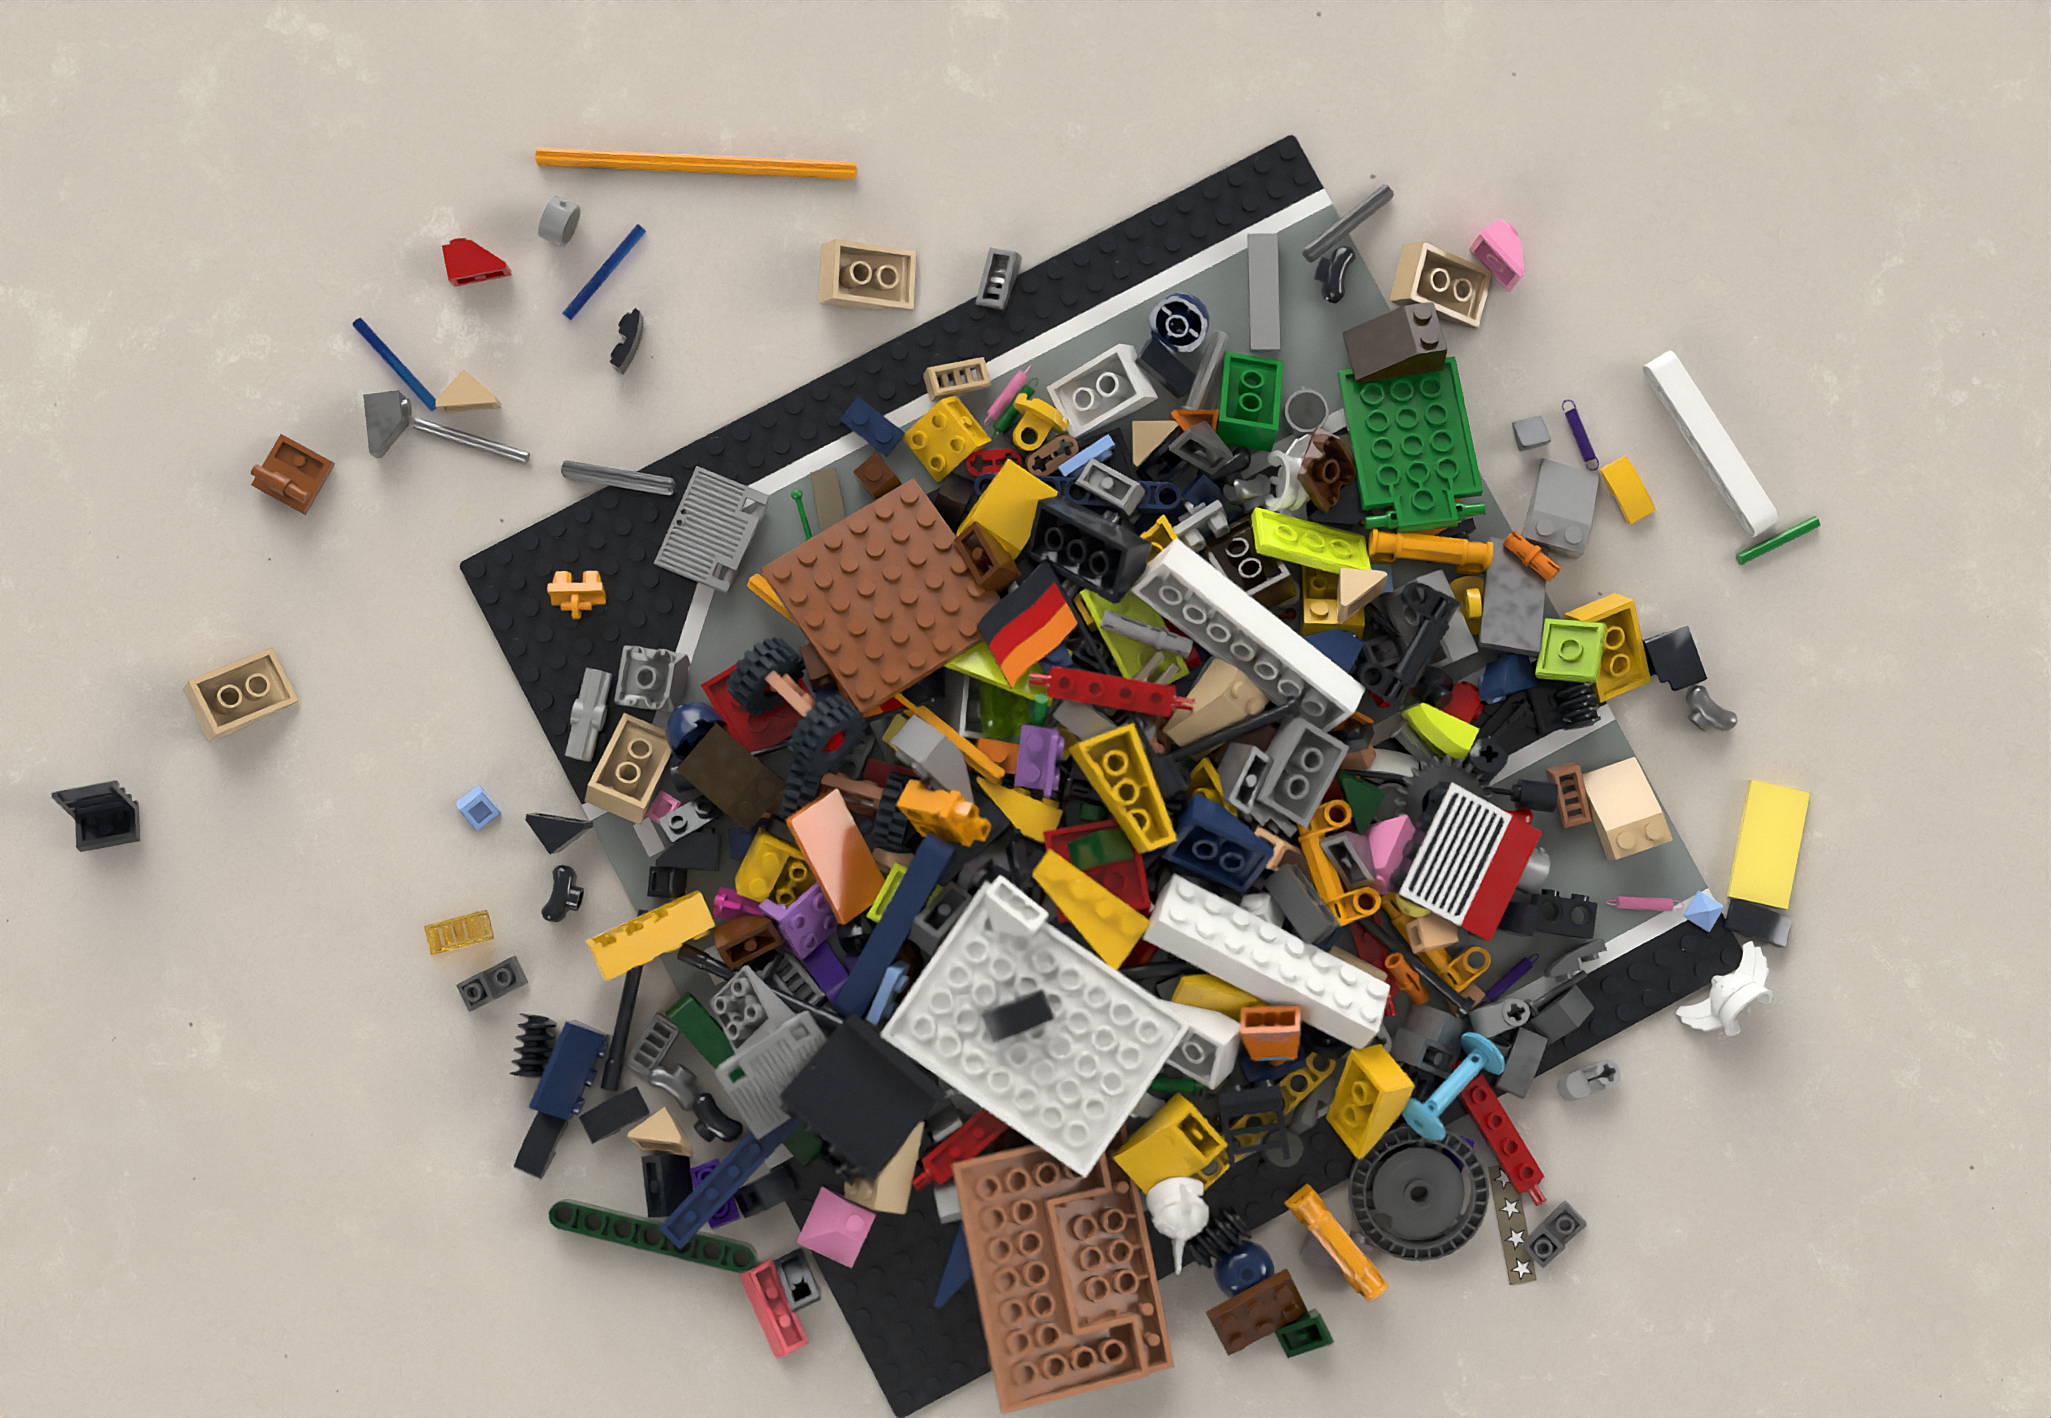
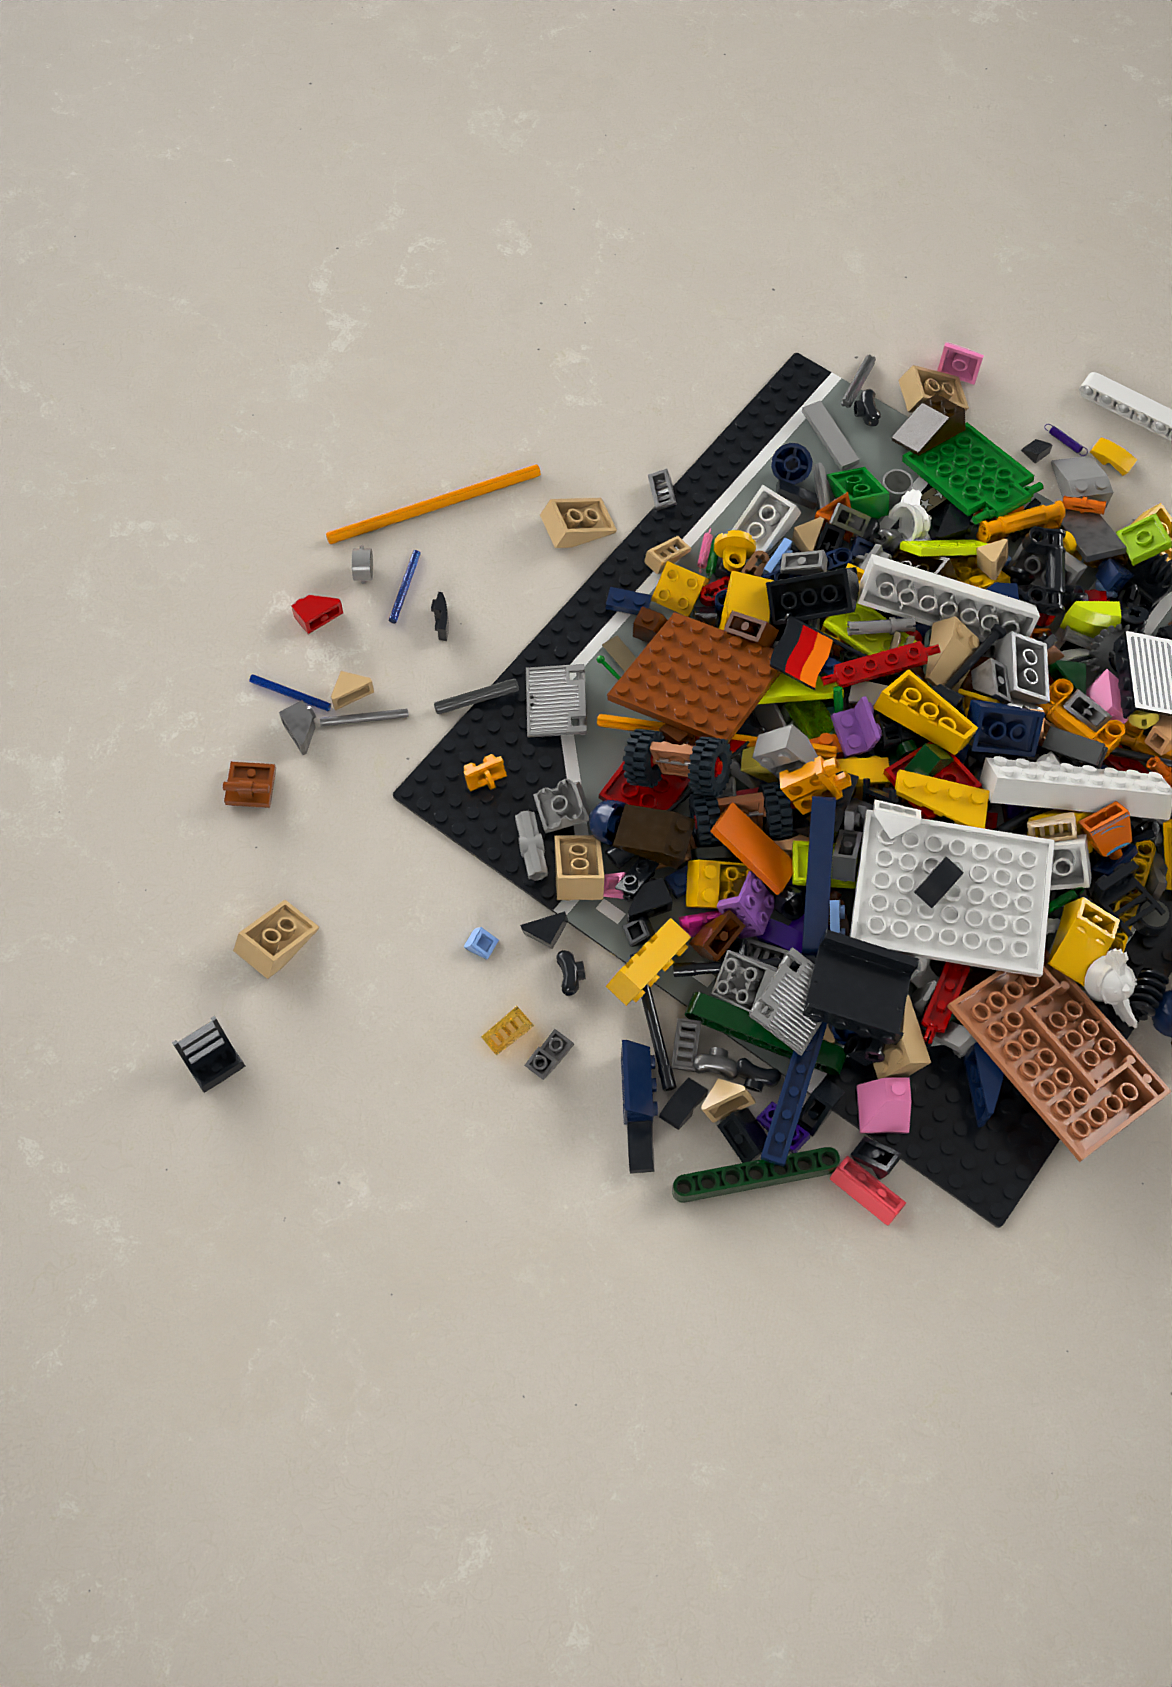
camera: 20 degrees left, 20 degrees down
(534, 1045) = (600, 1080): black piece -> none
(1220, 1003) = (1060, 819): none -> tan slope
(1325, 469) = (931, 500): reddish brown slope -> none

